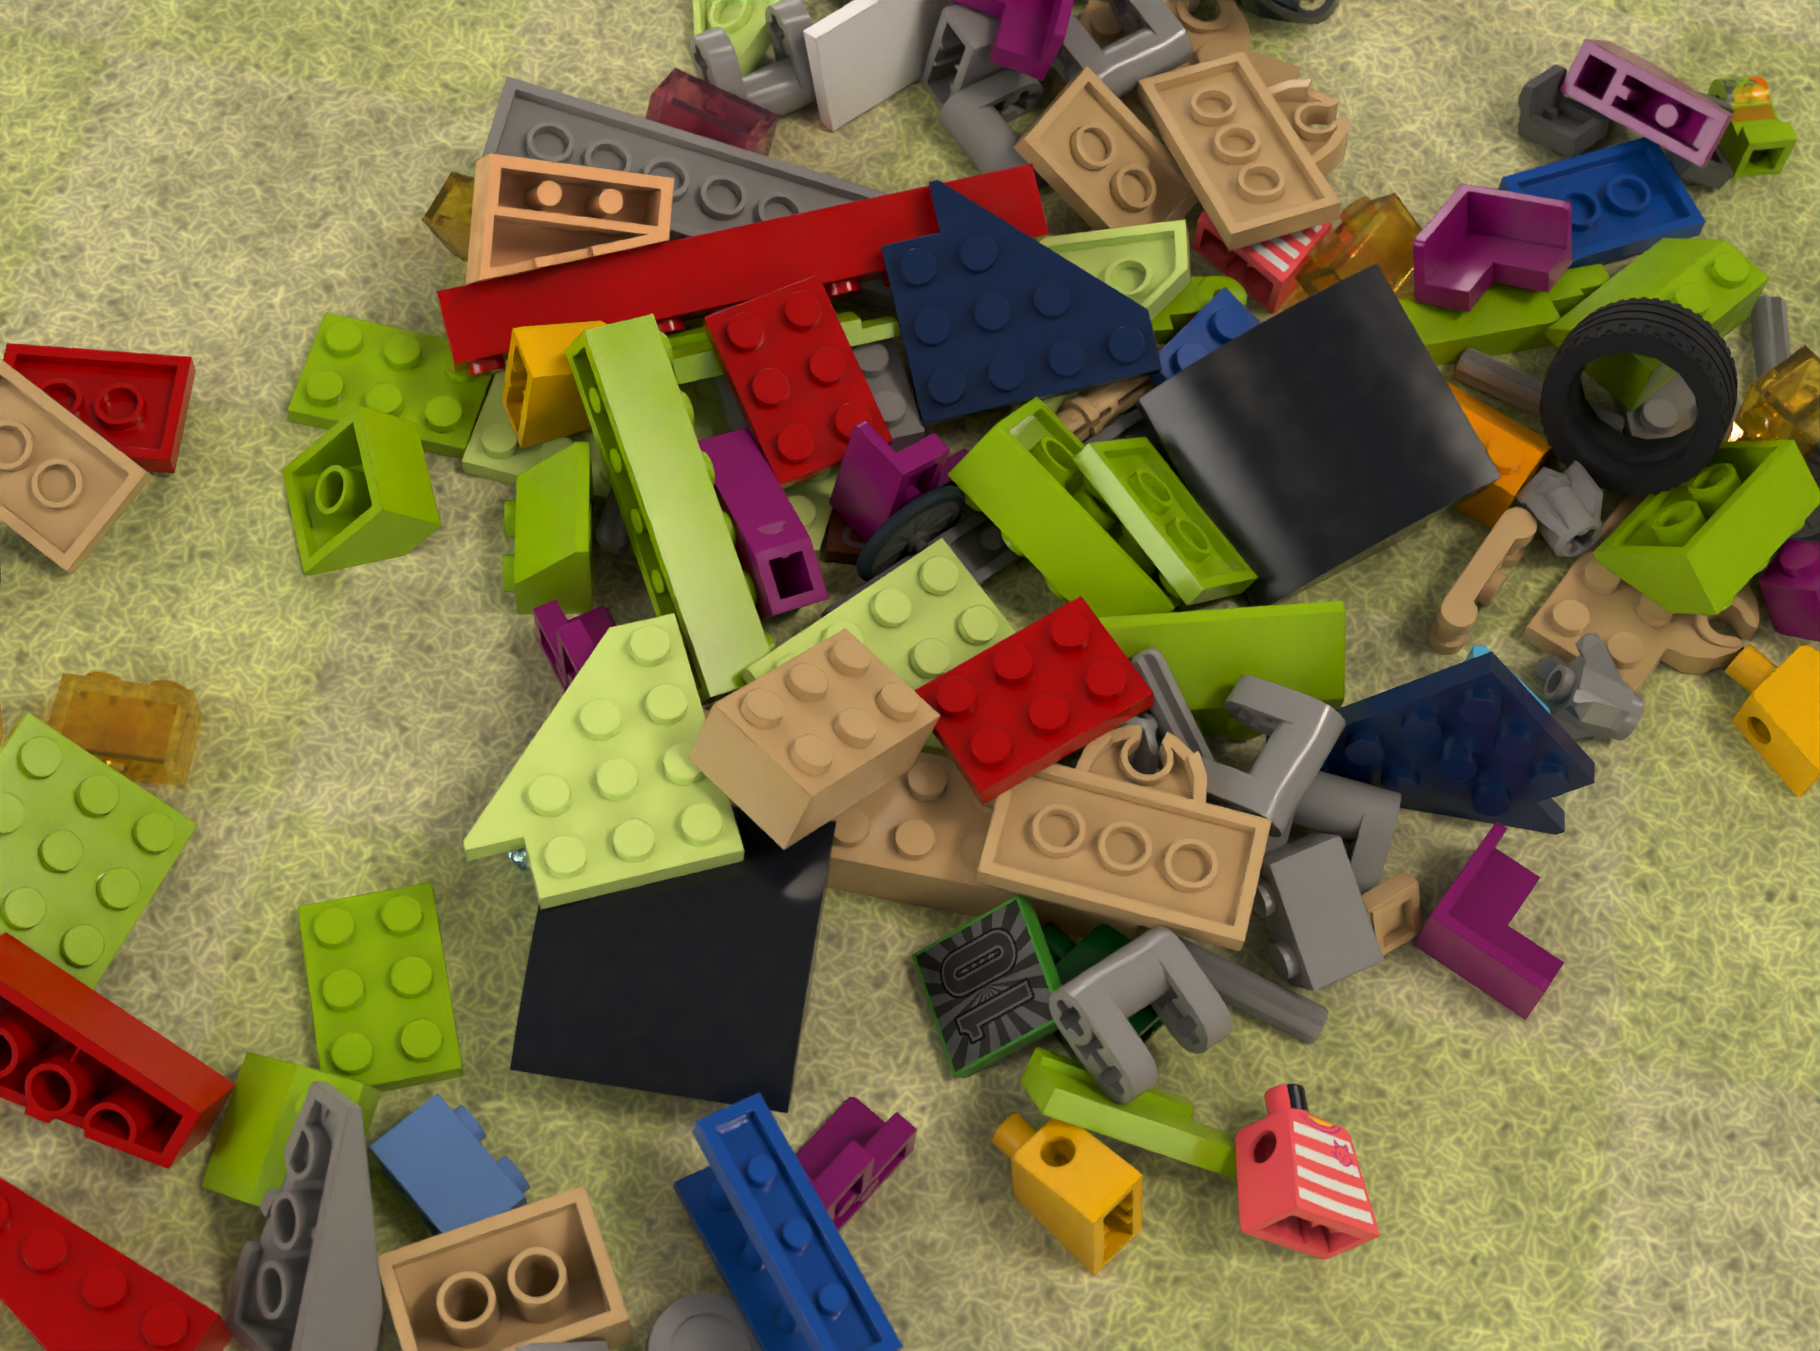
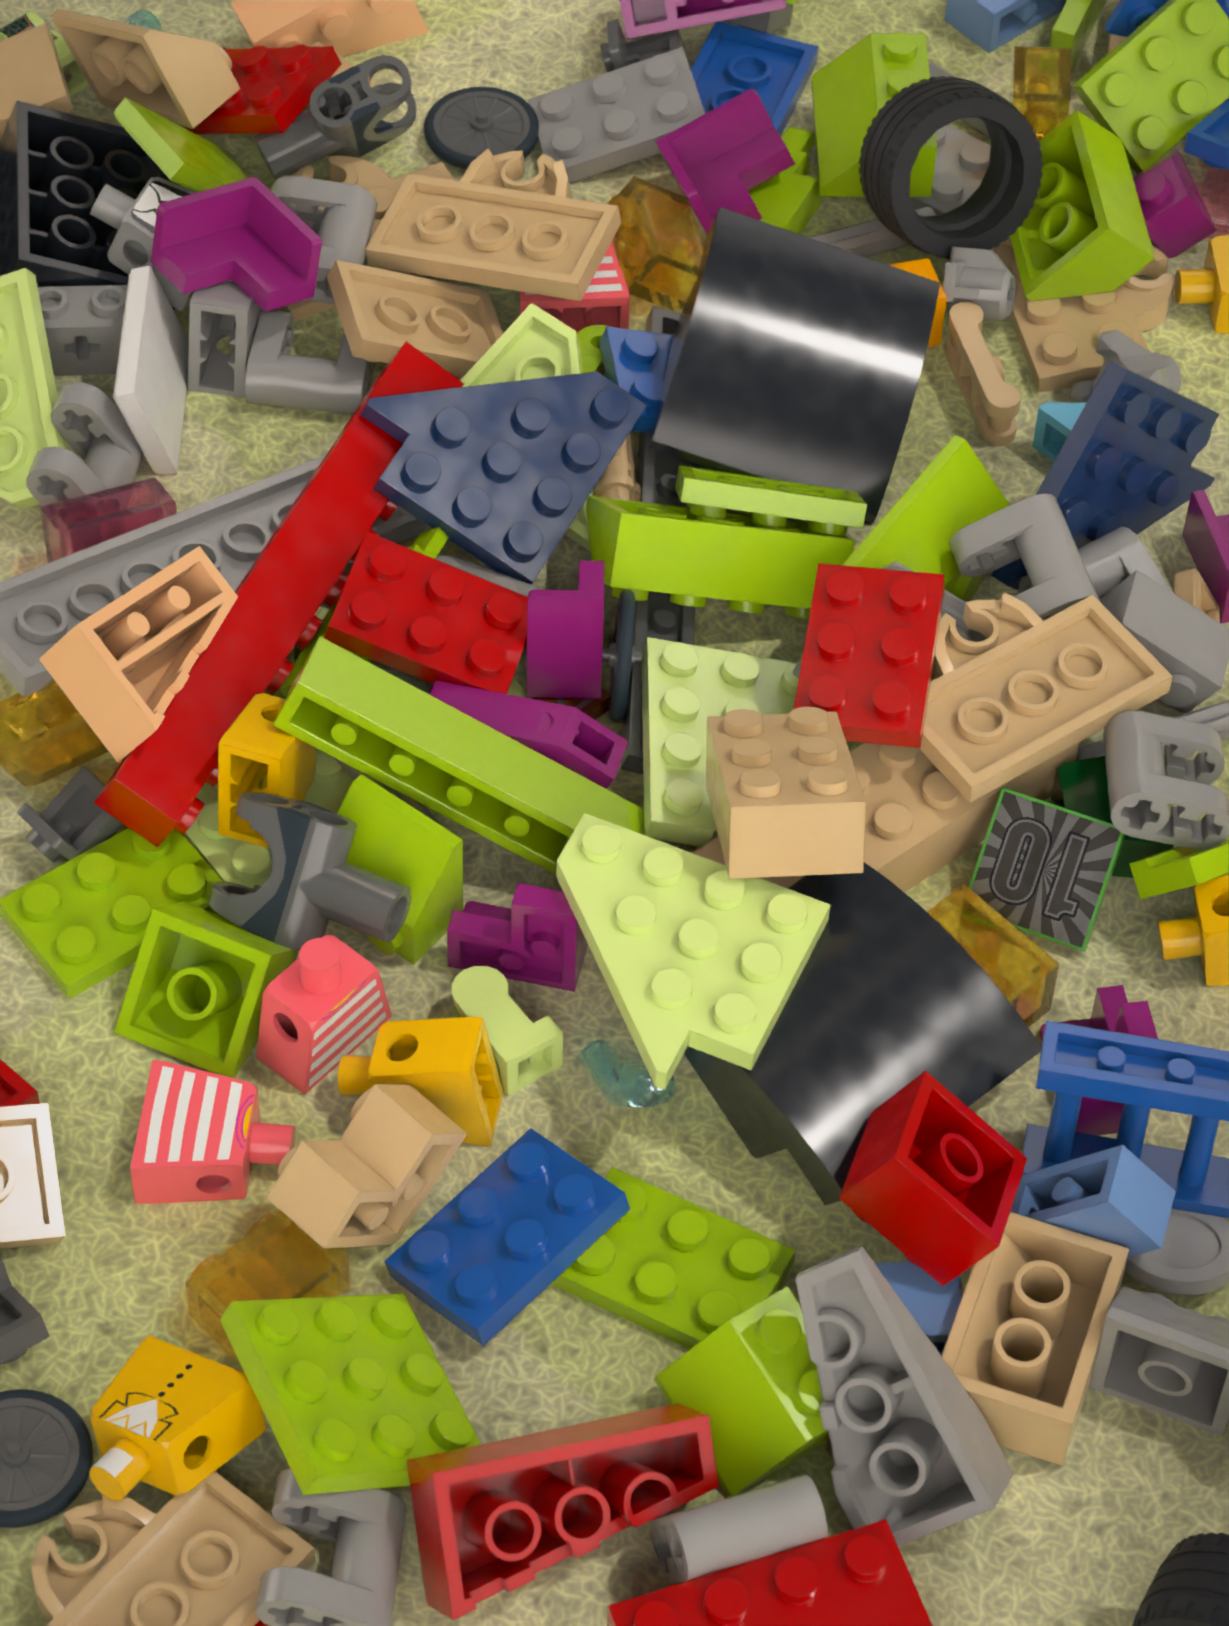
camera: 45 degrees left, 10 degrees down
(104, 1197) = (739, 1529): none -> light grey connector
(219, 590) = (201, 1137): none -> coral torso
(248, 723) = (374, 1175): none -> tan brick
(299, 856) = (507, 1236): none -> blue plate
(380, 680) = (443, 1061): none -> yellow torso
(397, 582) = (319, 1011): none -> coral torso
(414, 301) = (71, 819): none -> dark grey bracket
(476, 484) = (308, 878): none -> dark grey connector
(494, 700) = (520, 1048): none -> yellowish green leg
(550, 1119) = (934, 1179): none -> red brick
(655, 1264) = (1100, 1196): none -> medium blue brick
(850, 1009) = (1006, 954): none -> clear yellow brick
(1370, 69) = (477, 120): none -> dark grey wheel
(1474, 140) = (617, 114): none -> light grey plate

